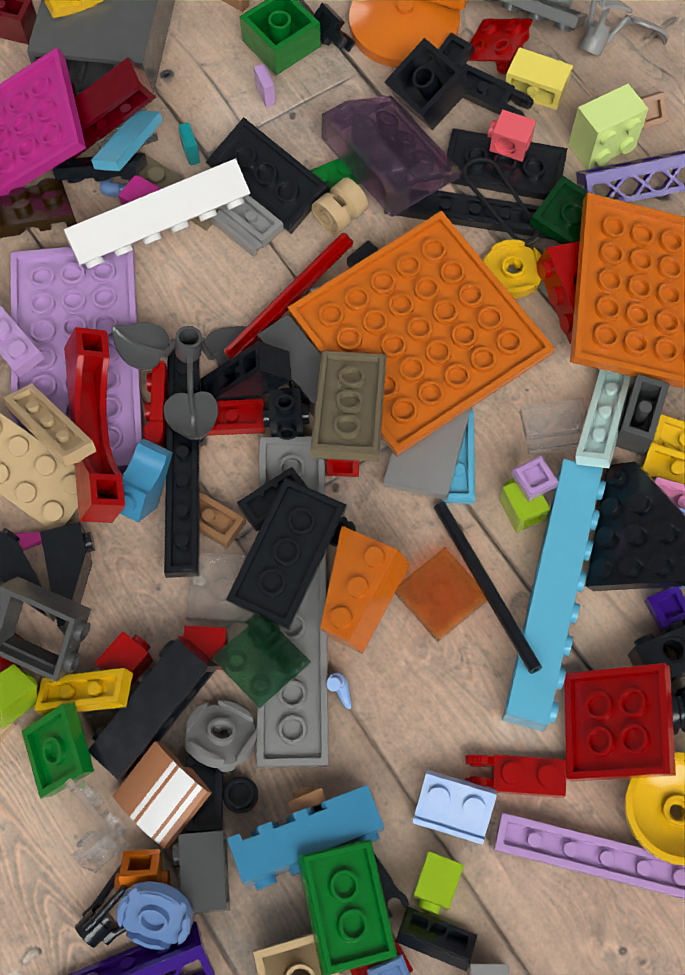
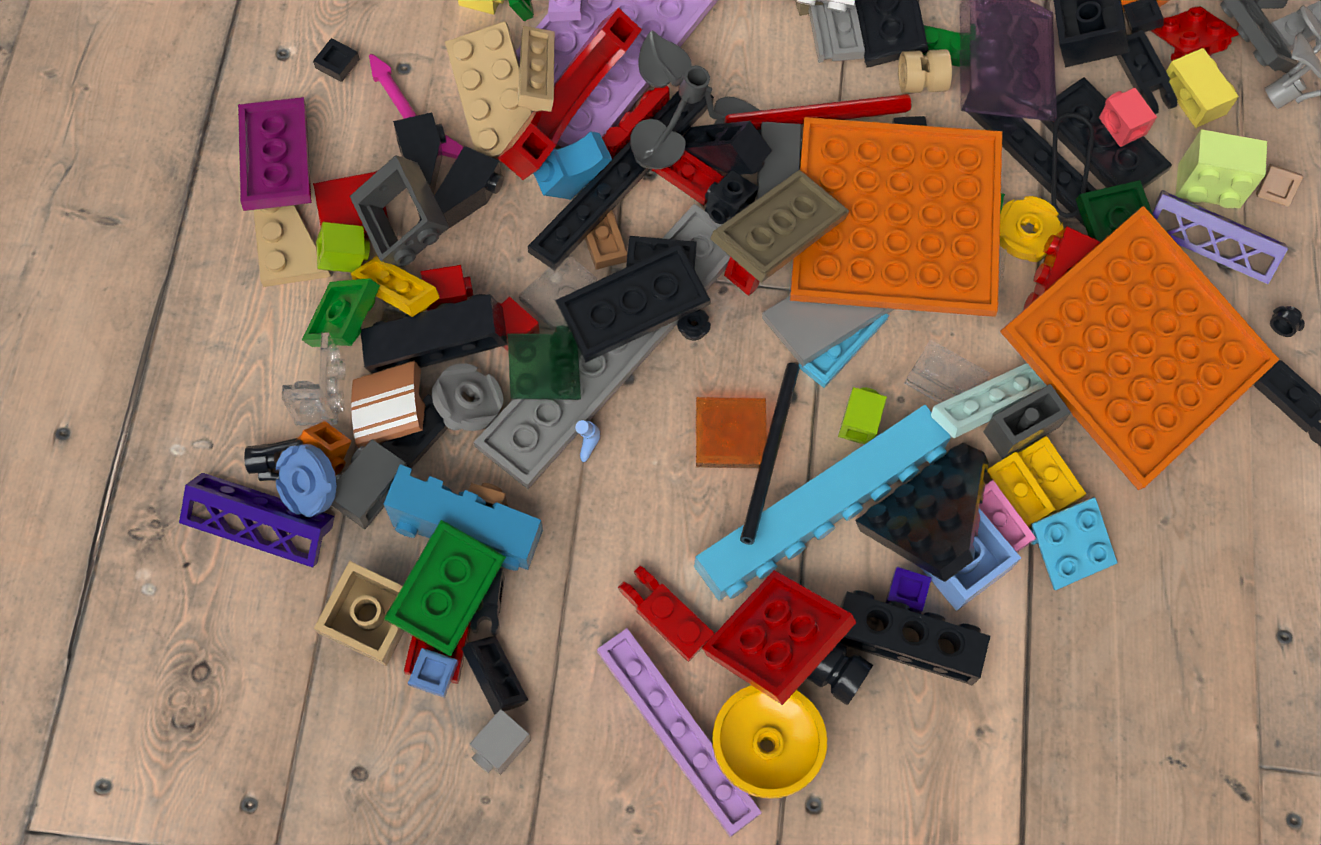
camera: 35 degrees right, 0 degrees up
(240, 795) = (444, 455): black plate -> none
(360, 588) = (668, 375): orange wedge -> none
(437, 883) = (531, 636): lime brick -> none
(454, 806) = (595, 594): light blue plate -> none
(534, 478) = (884, 399): lavender tile -> none

